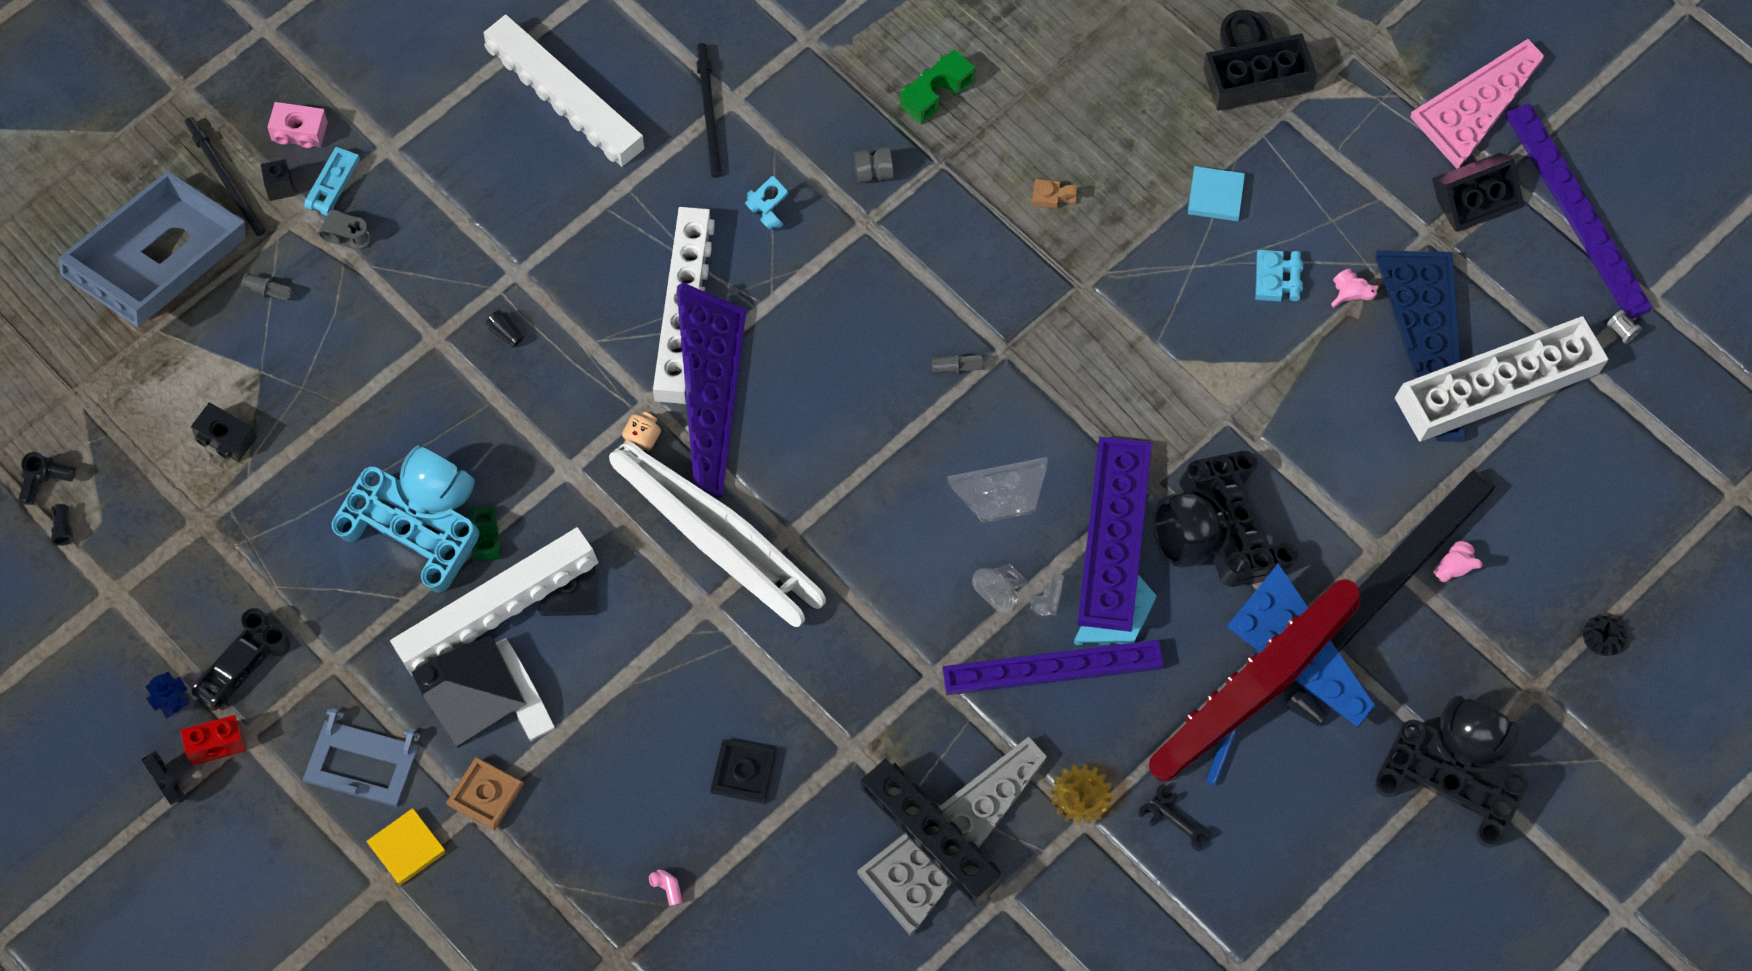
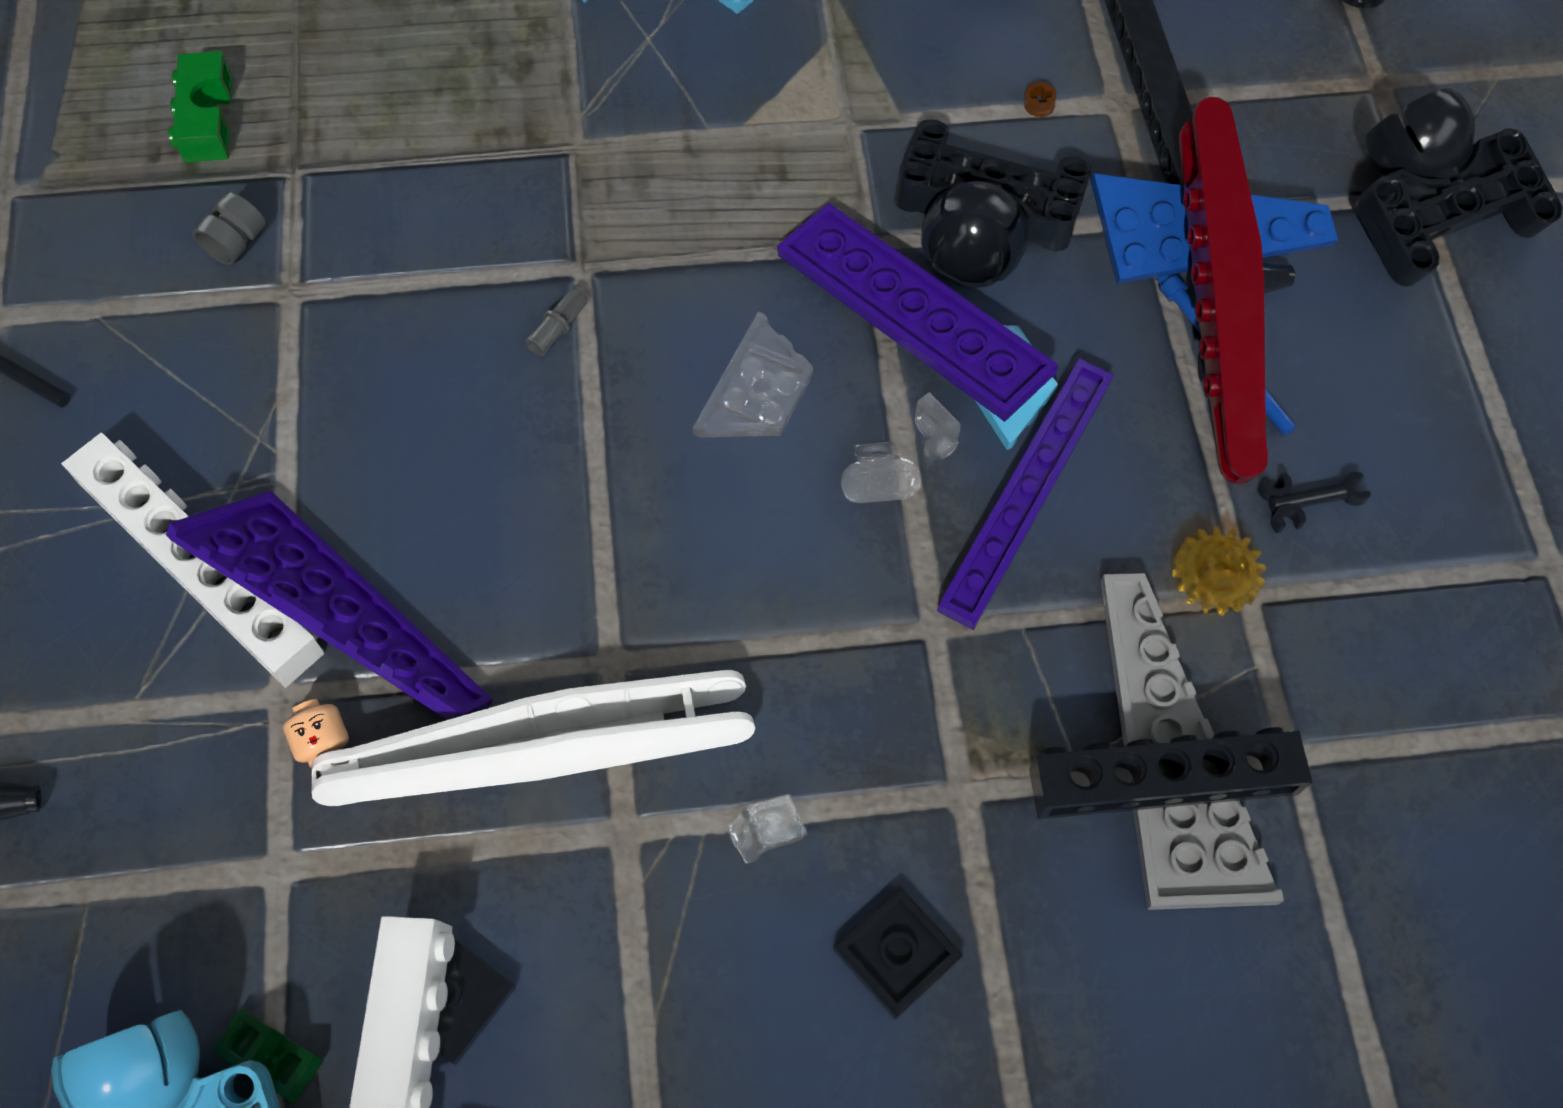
camera: 55 degrees left, 0 degrees up
(756, 203) = (148, 379): medium azure bracket -> none
(757, 667) = (766, 827): none -> clear bracket
(1048, 194) = (440, 99): medium nougat plate -> none
(1337, 497) = (1047, 94): none -> reddish brown bush
(1457, 562) = (1193, 40): bright pink animal -> none

